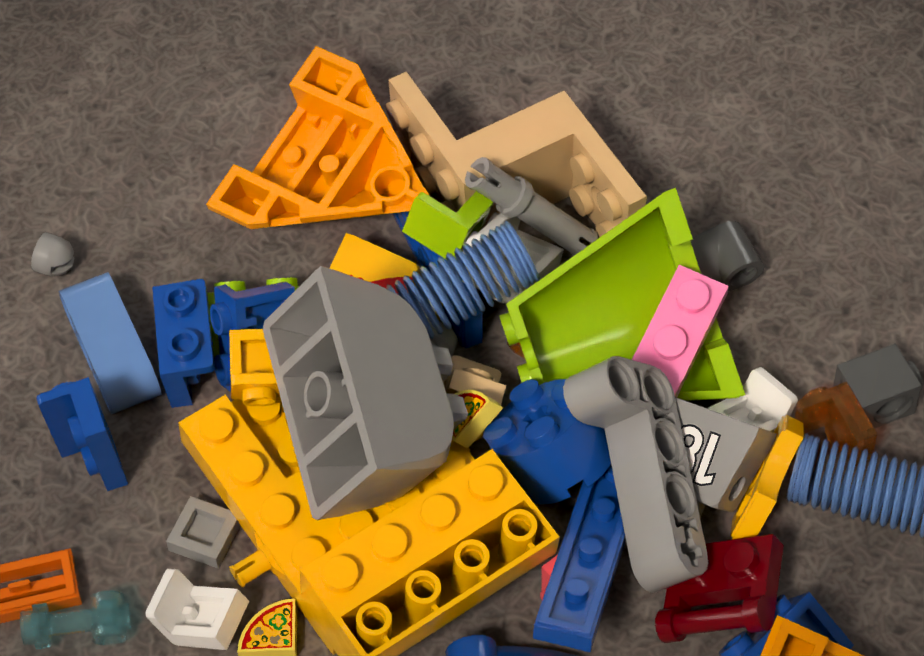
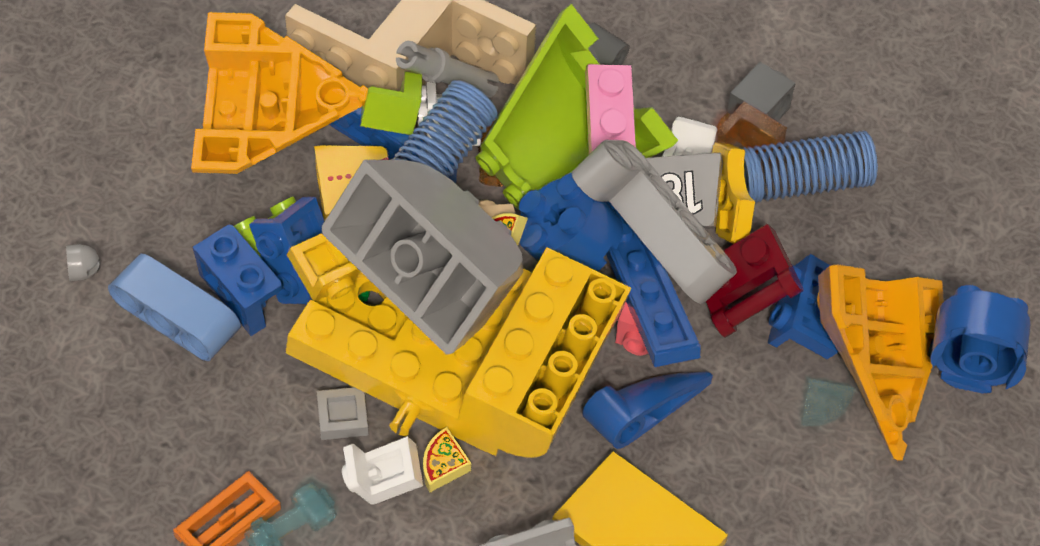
camera: 35 degrees left, 0 degrees up
(80, 426) = (214, 370): blue bracket -> none

